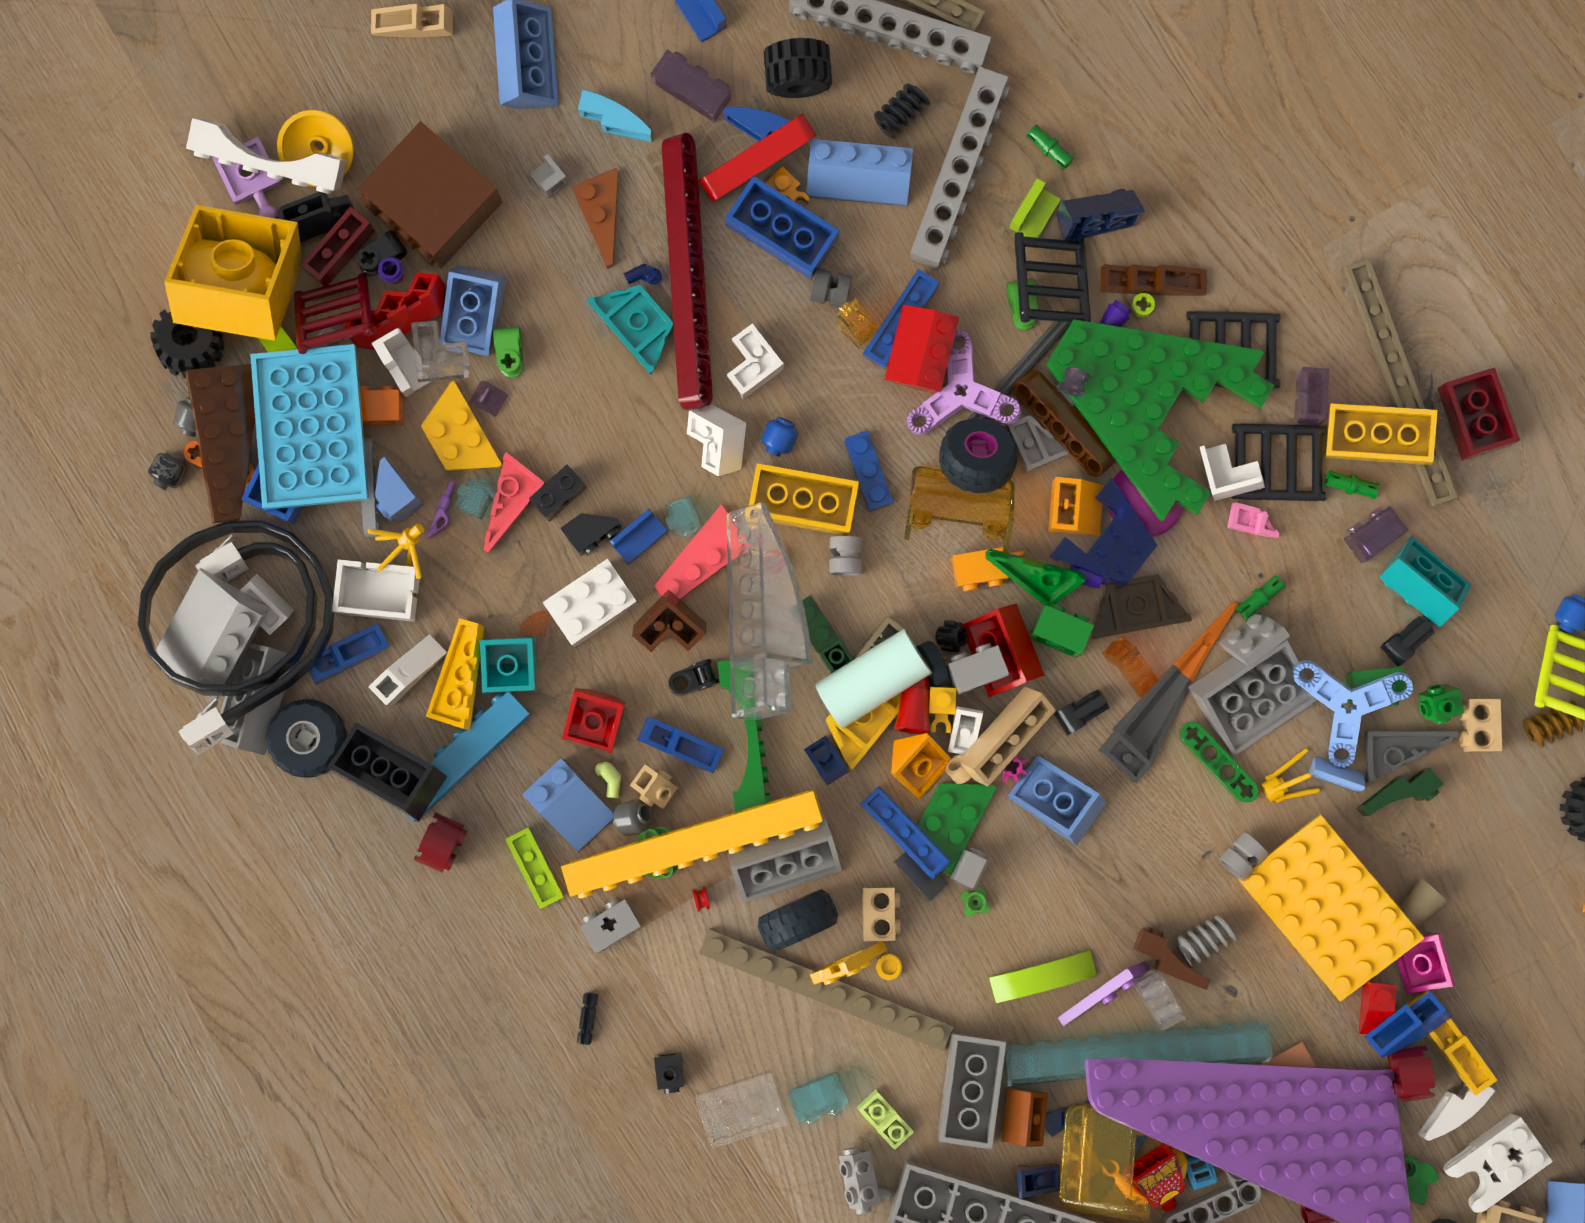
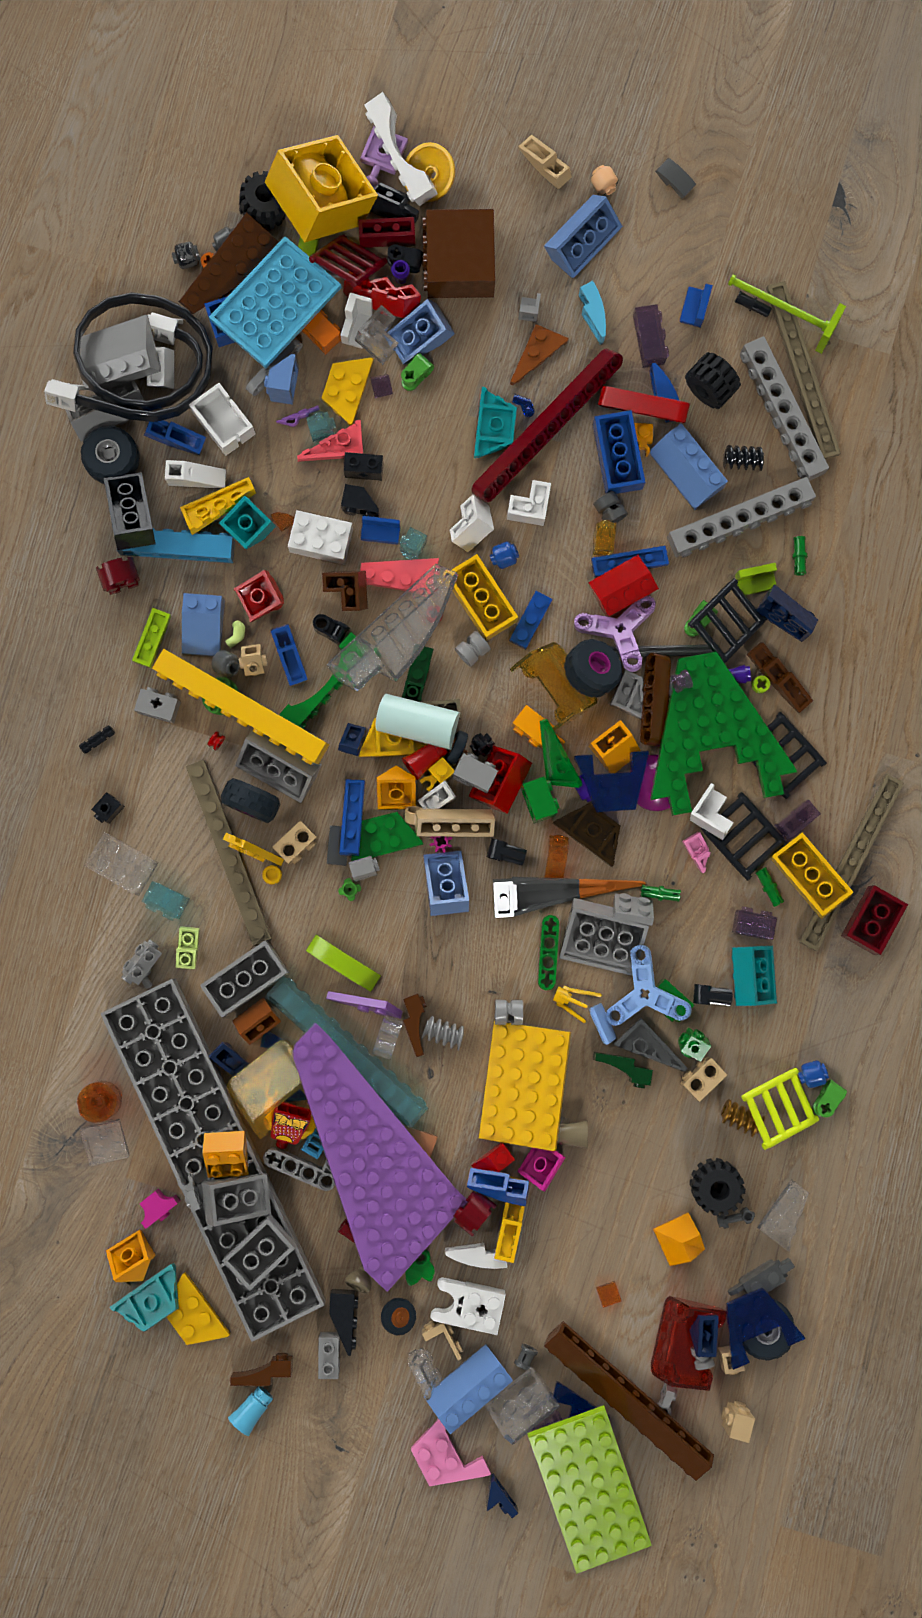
camera: 40 degrees right, 0 degrees up
(406, 540) = (262, 408): yellow plant -> none

